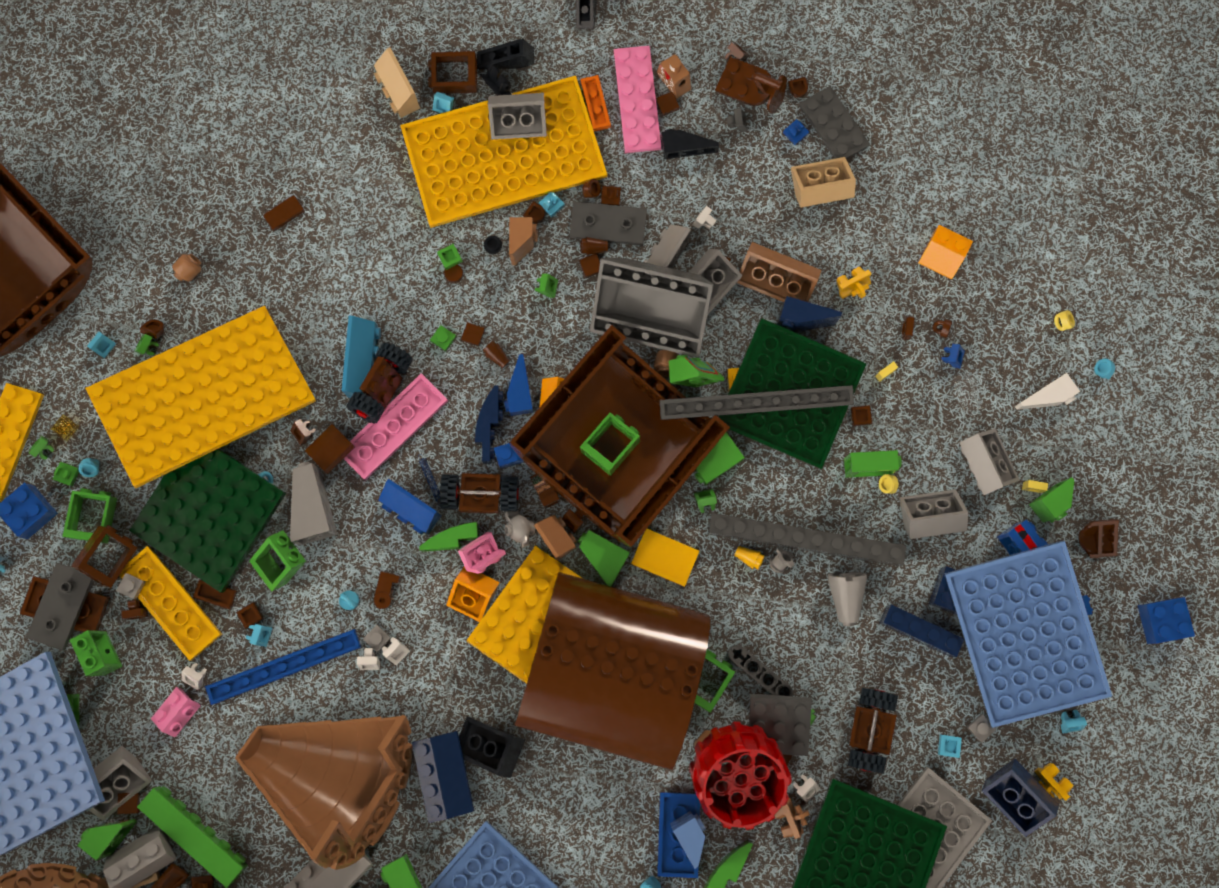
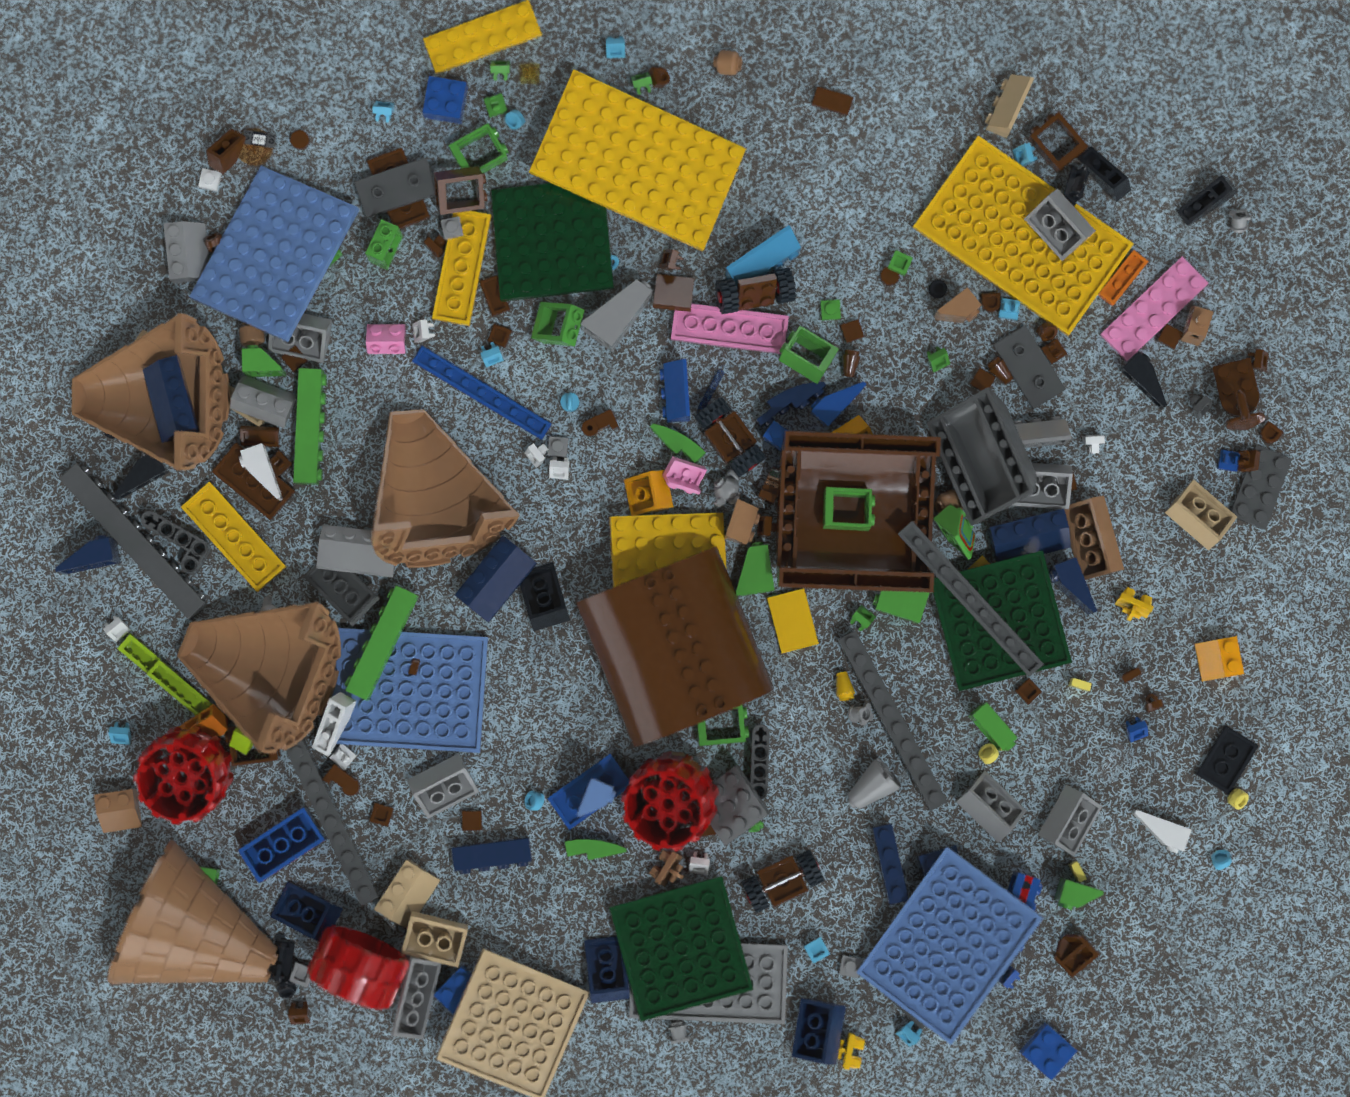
camera: 50 degrees right, 5 degrees up
(76, 826) = (250, 335): none -> medium nougat head
(458, 371) = (812, 343): none -> bright green window
(740, 320) = (1030, 535): none -> dark blue slope
(808, 116) = (1248, 460): none -> reddish brown tile
(1027, 306) = (1226, 760): none -> black tile

